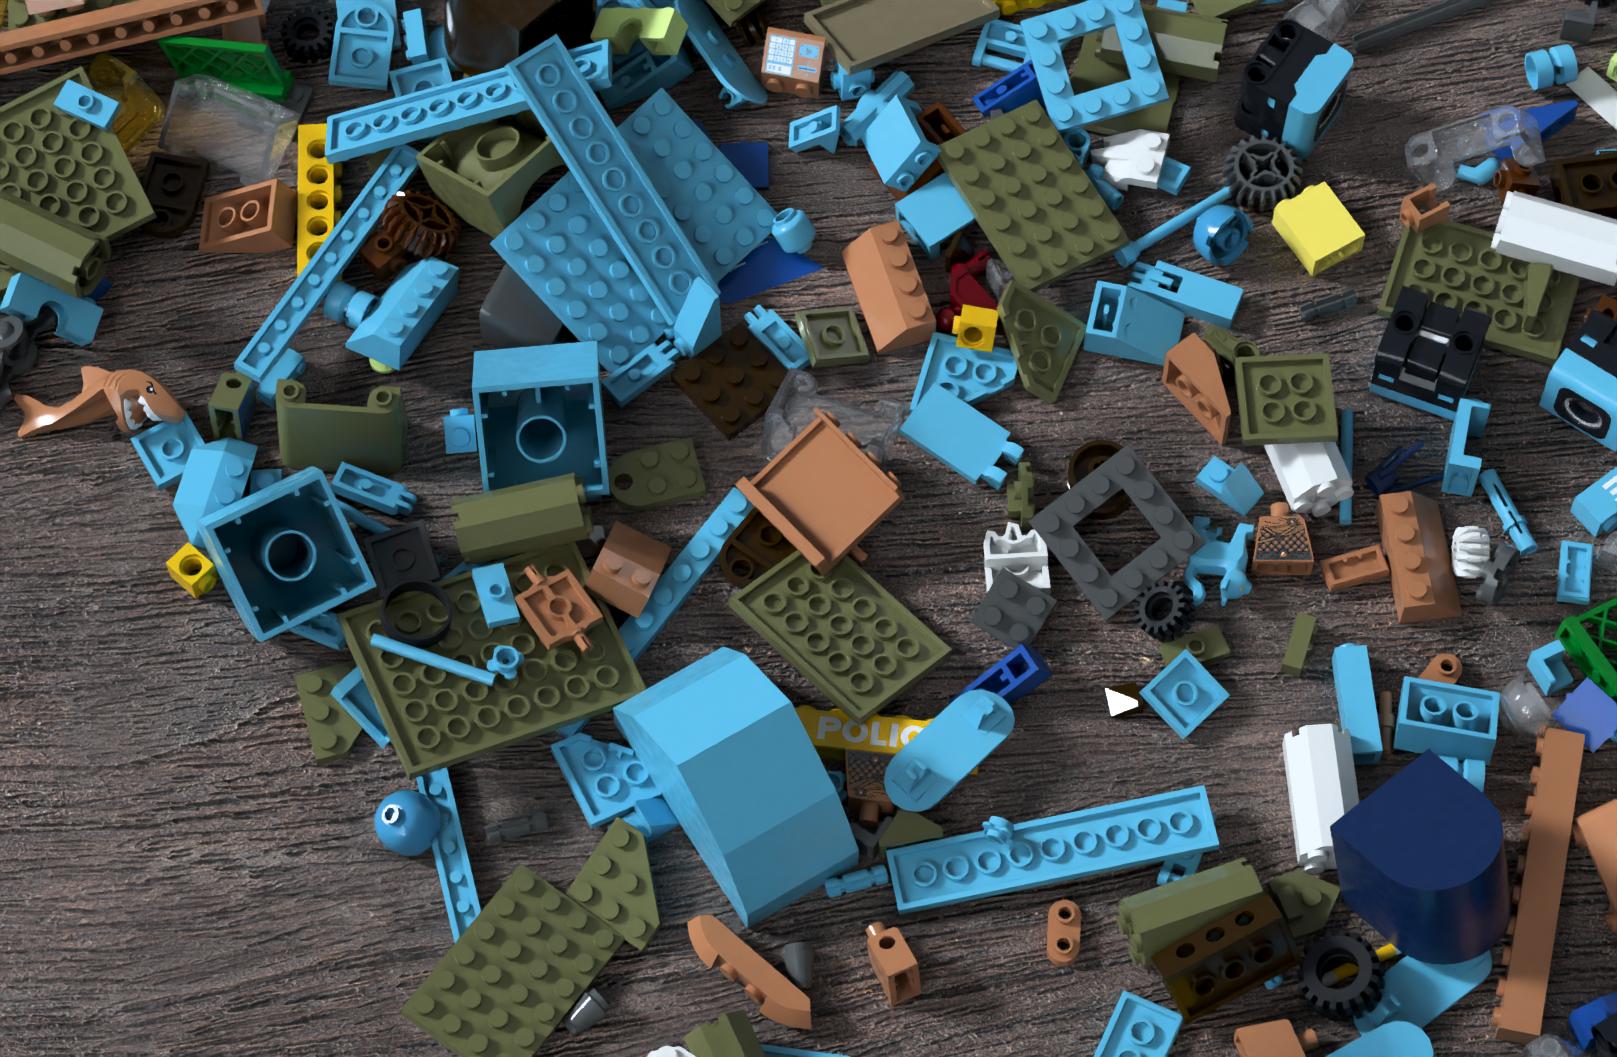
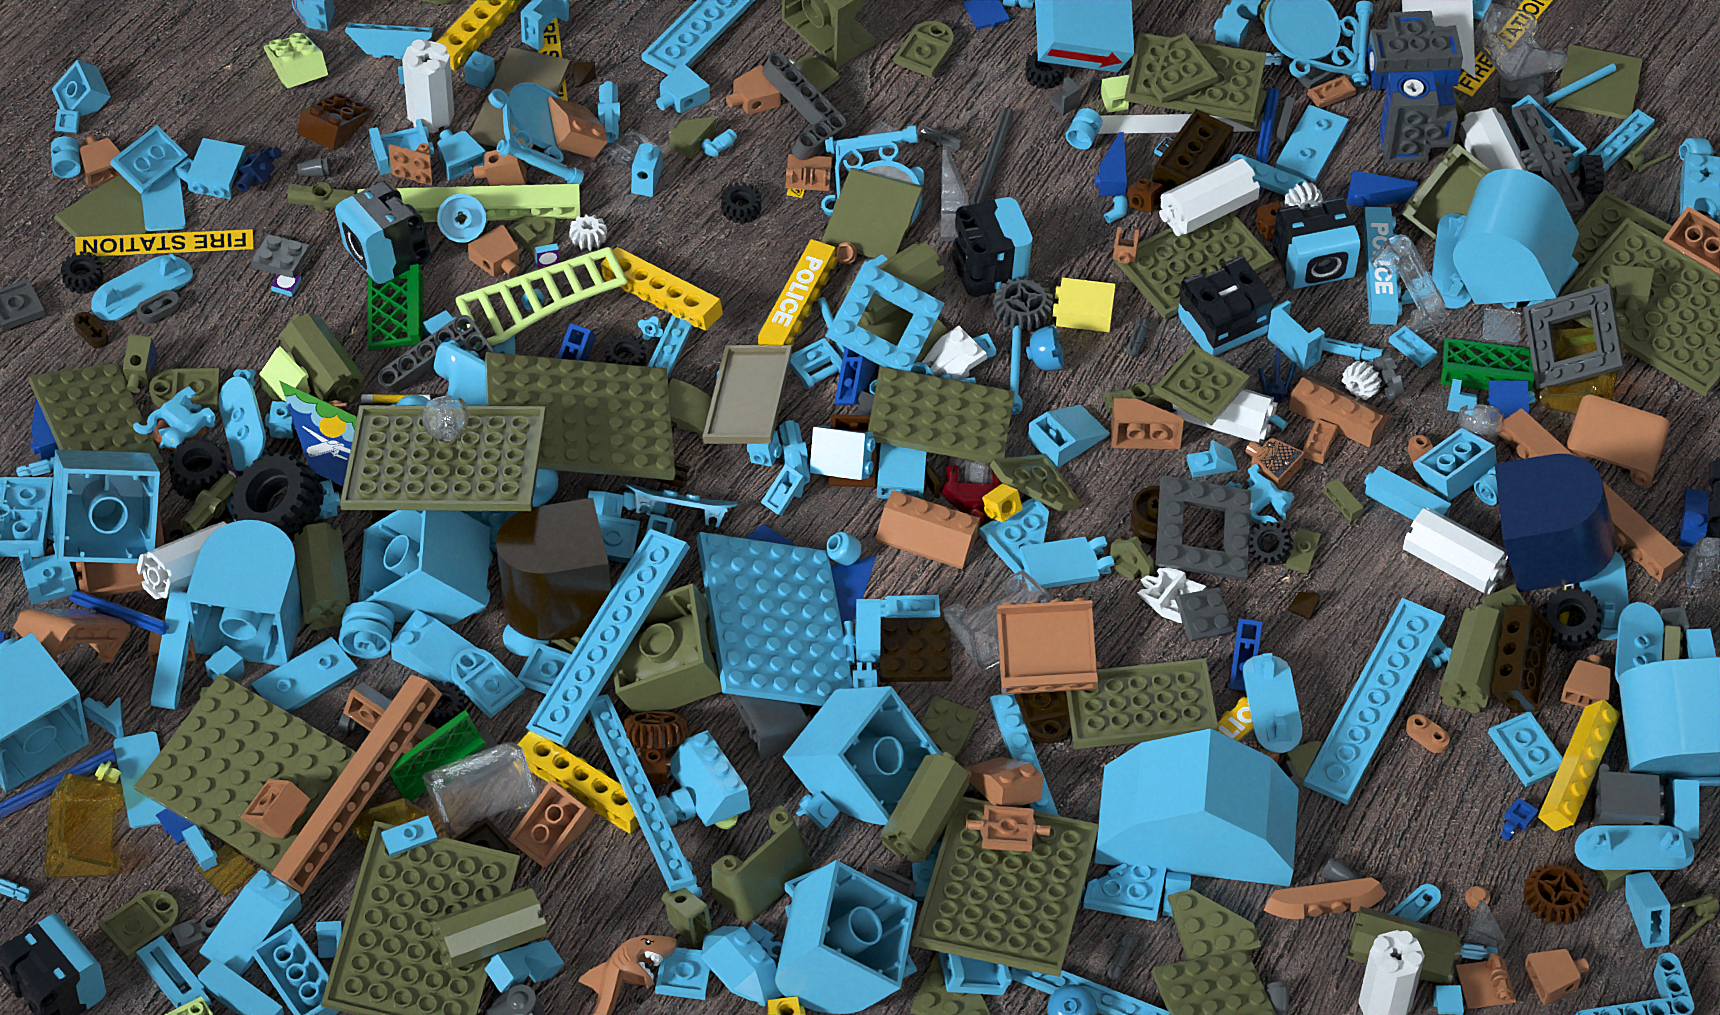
camera: 55 degrees left, 10 degrees down
(416, 36) = (503, 649): medium azure piece -> none
(423, 586) = (952, 879): black tyre -> none
(432, 659) = (989, 910): medium azure bar -> none
(495, 595) = (969, 853): medium azure plate -> none
(509, 654) = (1022, 875): medium azure plate -> none
(609, 174) = (745, 596): medium azure plate -> none
(657, 28) = (646, 508): yellowish green arch -> none
(794, 63) = (726, 468): nougat slope -> none
(832, 337) = (934, 579): olive tile -> none
(856, 881) = (1308, 810): medium azure axle -> none
(893, 963) = (1381, 823): nougat torso -> none
(998, 830) = (1346, 712): medium azure plate -> none
(1184, 694) = (1330, 571): medium azure plate -> none
(1196, 294) = (1076, 388): medium azure hinge -> none
(1434, 152) = (1128, 163): clear windscreen -> none
(1535, 286) = (1226, 235): olive slope -> none

